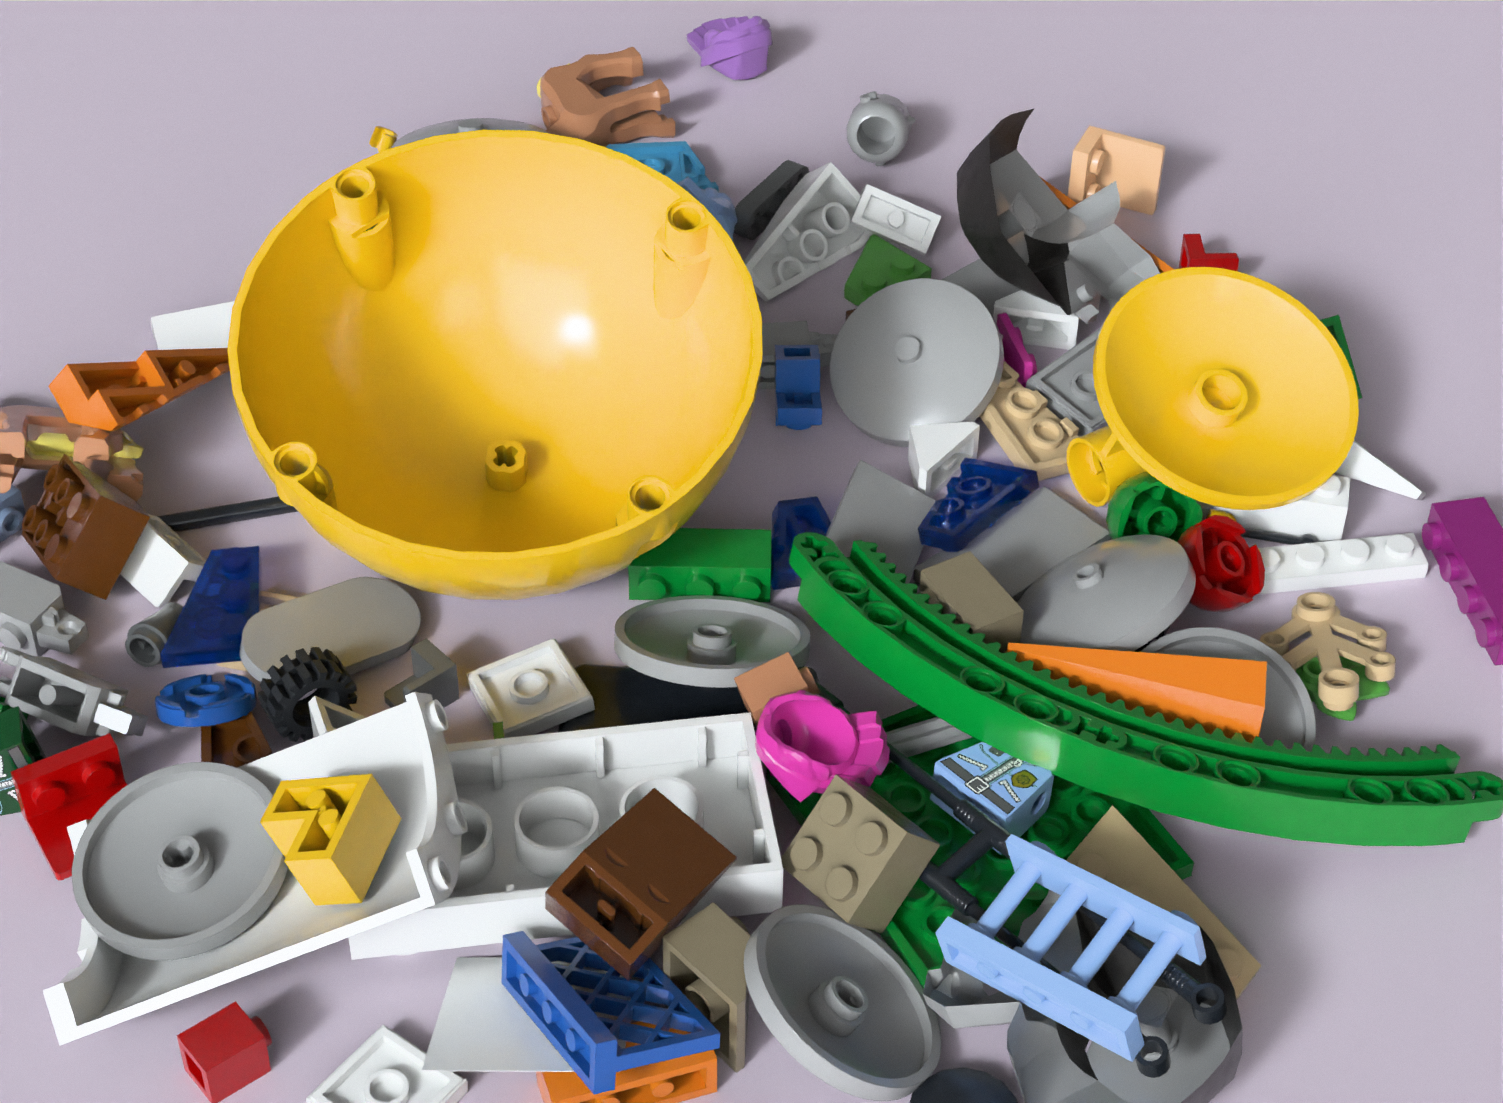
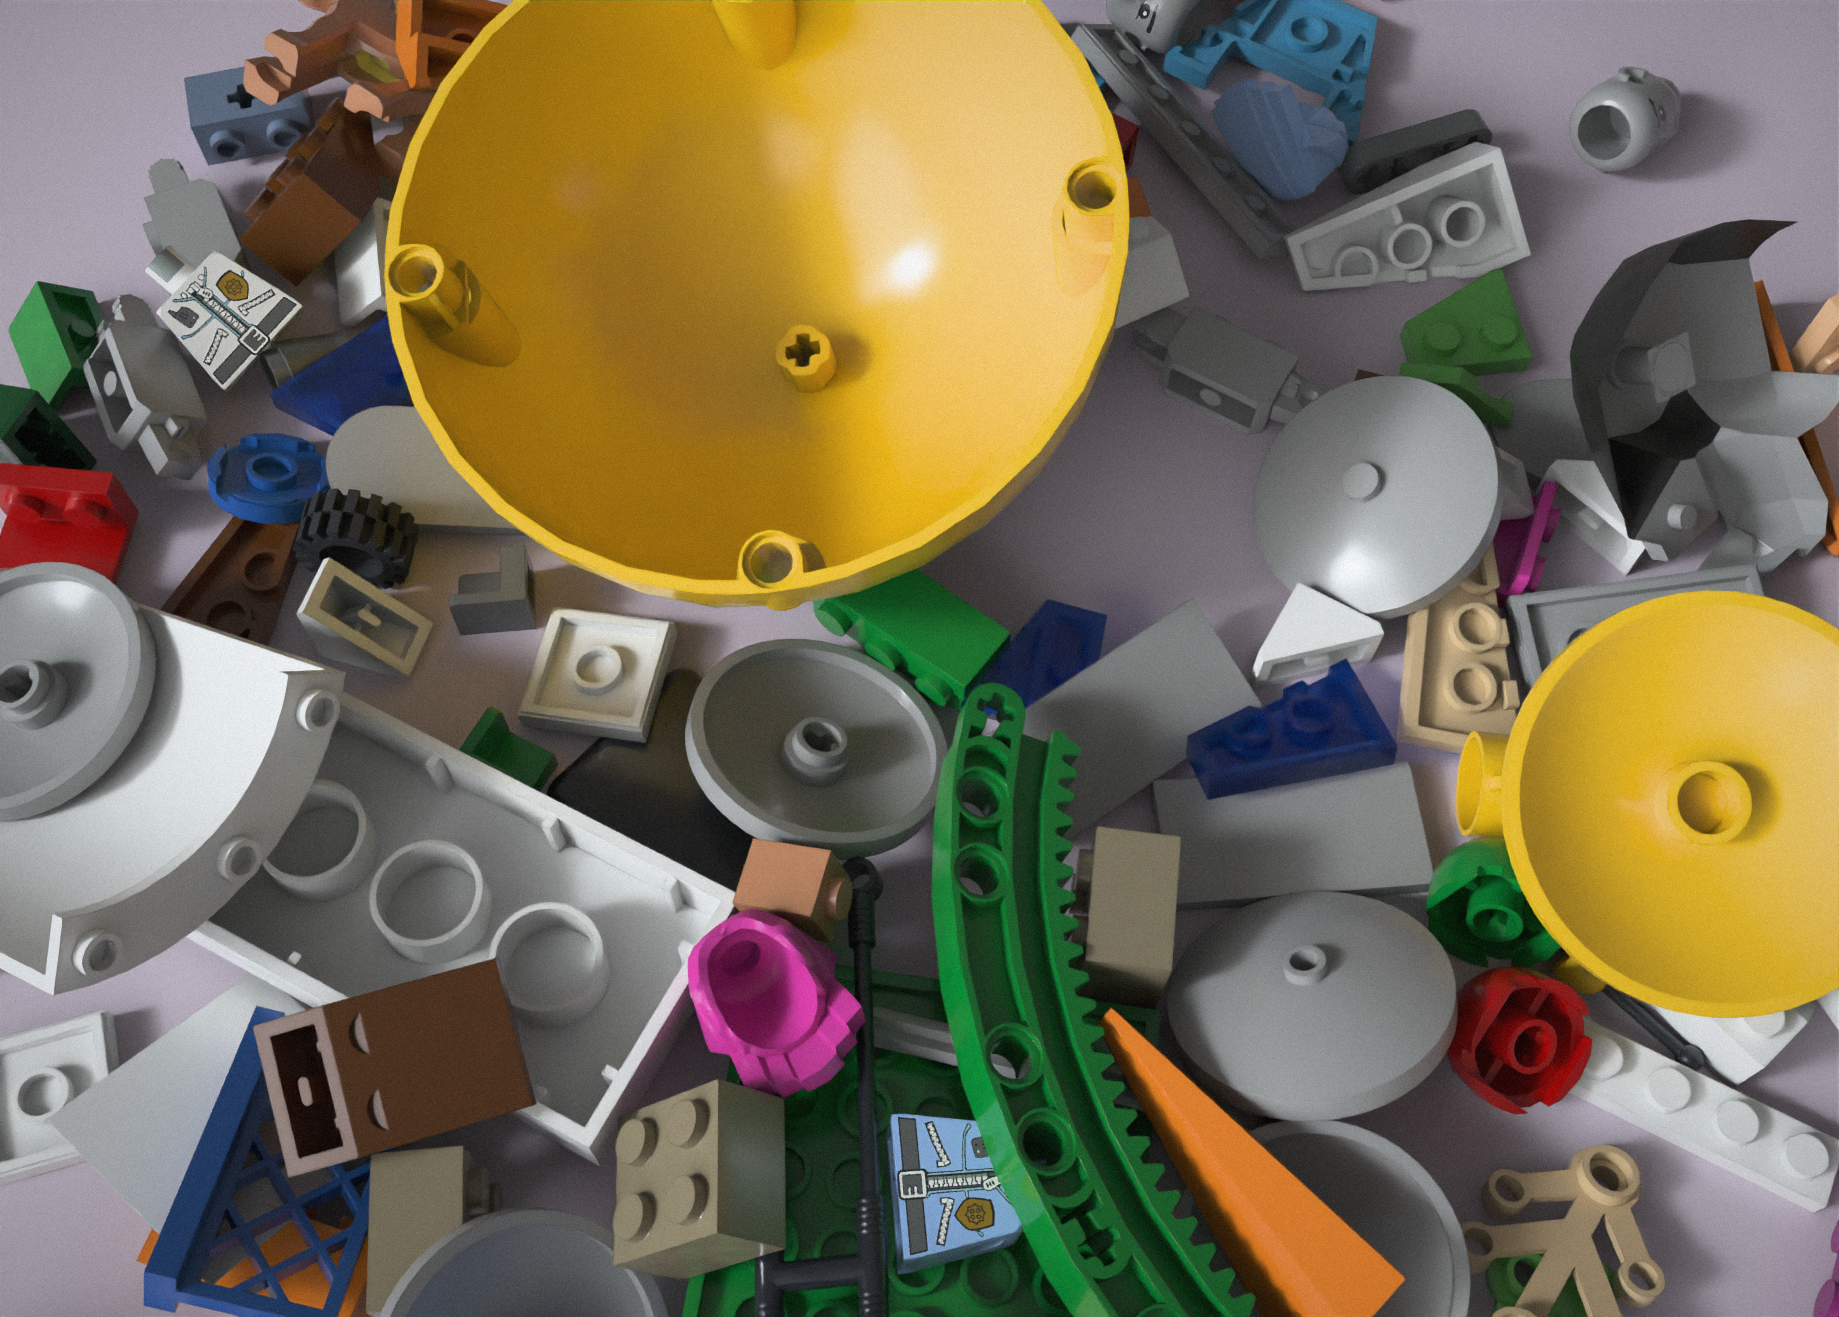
camera: 35 degrees right, 20 degrees up
(87, 622) = (221, 312): none -> torso
(332, 833) = (113, 798): yellow brick -> none
(797, 386) = (1215, 445): blue brick -> none
(895, 219) = (1537, 264): white panel -> none

